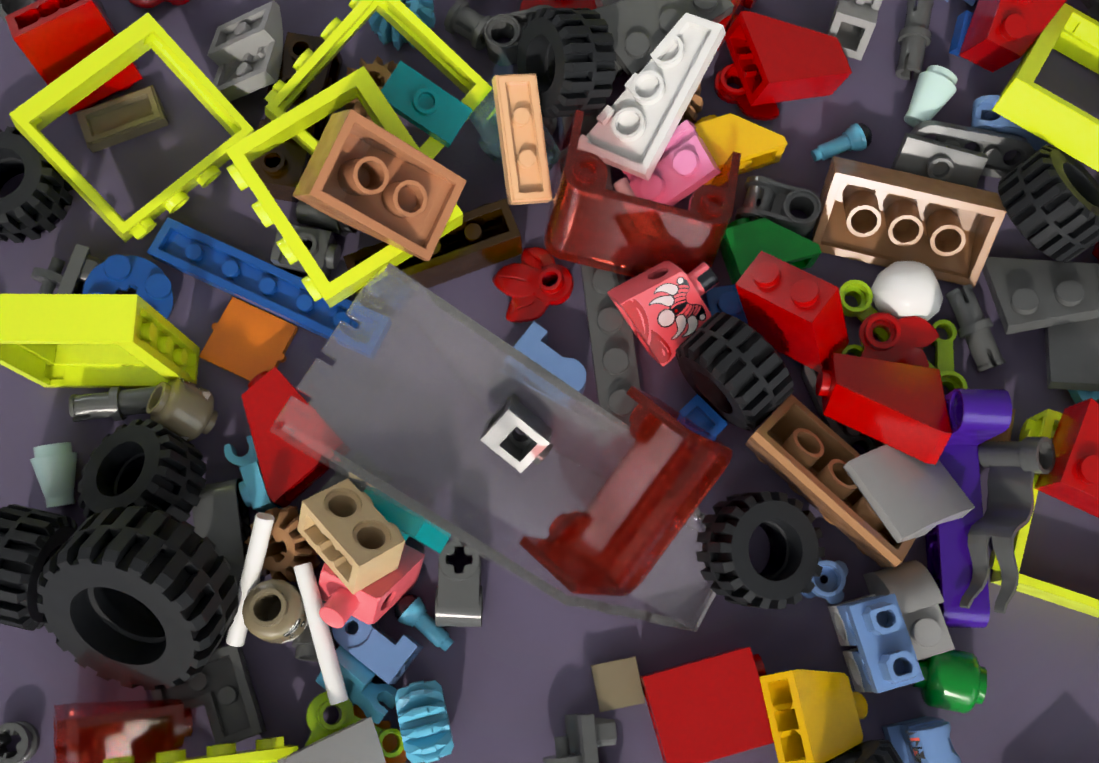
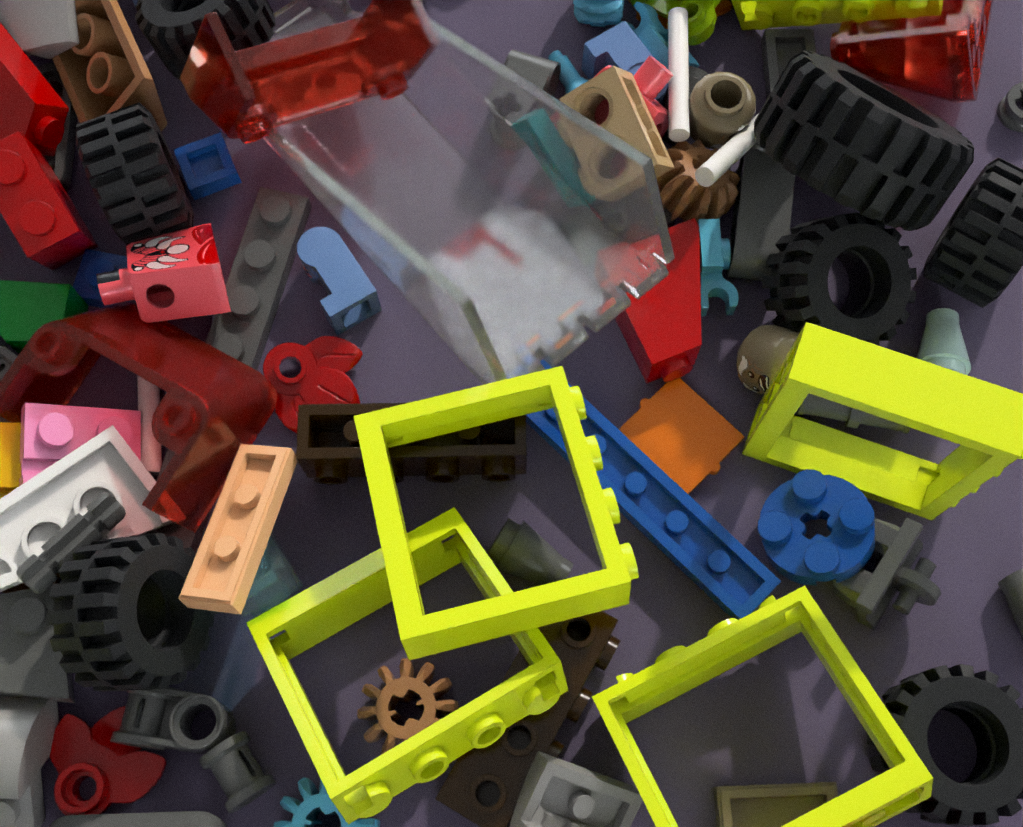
camera: 160 degrees left, 5 degrees down
(324, 251) = (551, 519): dark grey brick -> none
(379, 185) = (448, 460): nougat slope -> none
(425, 104) = (346, 615): teal plate -> none
(517, 449) = (403, 201): dark grey brick -> none
(626, 86) = (40, 571): none -> dark grey axle

